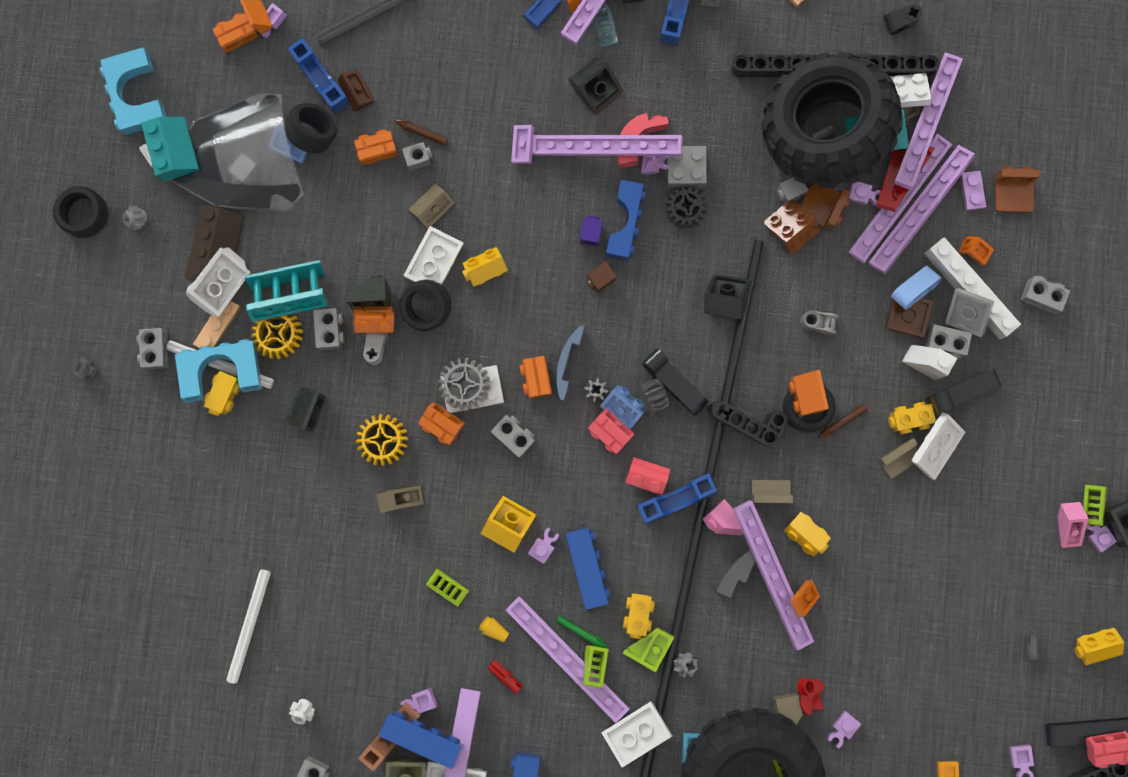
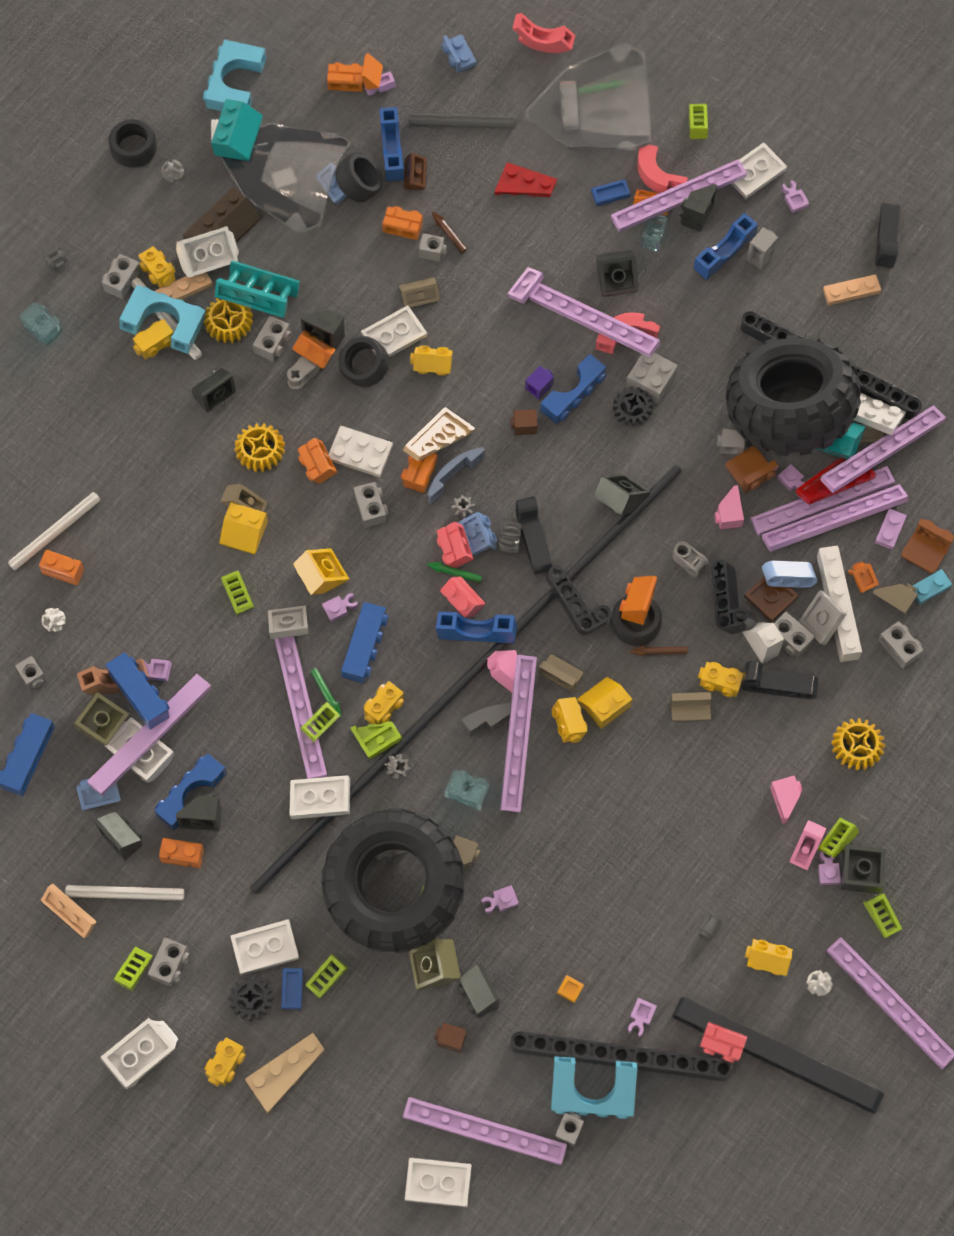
camera: 25 degrees right, 15 degrees down
(98, 436) = (41, 323): none -> clear light blue brick
(185, 323) = (158, 269): none -> yellow brick
(277, 658) = (61, 567): none -> orange brick
(415, 525) = (243, 528): none -> yellow slope
(459, 42) = (524, 181): none -> red wing
(465, 374) = (350, 449): light grey gear -> none
(493, 629) = (253, 646): yellow cone -> none
(505, 677) = (239, 690): red axle -> none
(510, 591) = (288, 622): none -> light grey plate
(535, 332) = (437, 434): none -> tan wing
(607, 458) = (439, 567): none -> green piece
(651, 164) = (626, 357): lavender plate -> none
(767, 653) = (473, 797): none -> clear light blue brick
(793, 226) = (714, 471): dark orange bracket -> none
(805, 598) = (534, 768): orange plate -> none
(809, 694) = (489, 852): red plate -> none
(825, 497) = (605, 701): none -> yellow slope
(828, 255) = (730, 511): none -> bright pink slope
(877, 337) = (725, 577): none -> black beam
(900, 20) = (910, 360): black piece -> none
(938, 446) = (728, 712): white plate -> none
(1018, 251) = (898, 595): none -> dark tan slope
(1029, 492) = (786, 794): none -> bright pink slope
(1037, 225) = (932, 586): none -> medium azure plate
(1063, 399) = (863, 749): none -> yellow gear

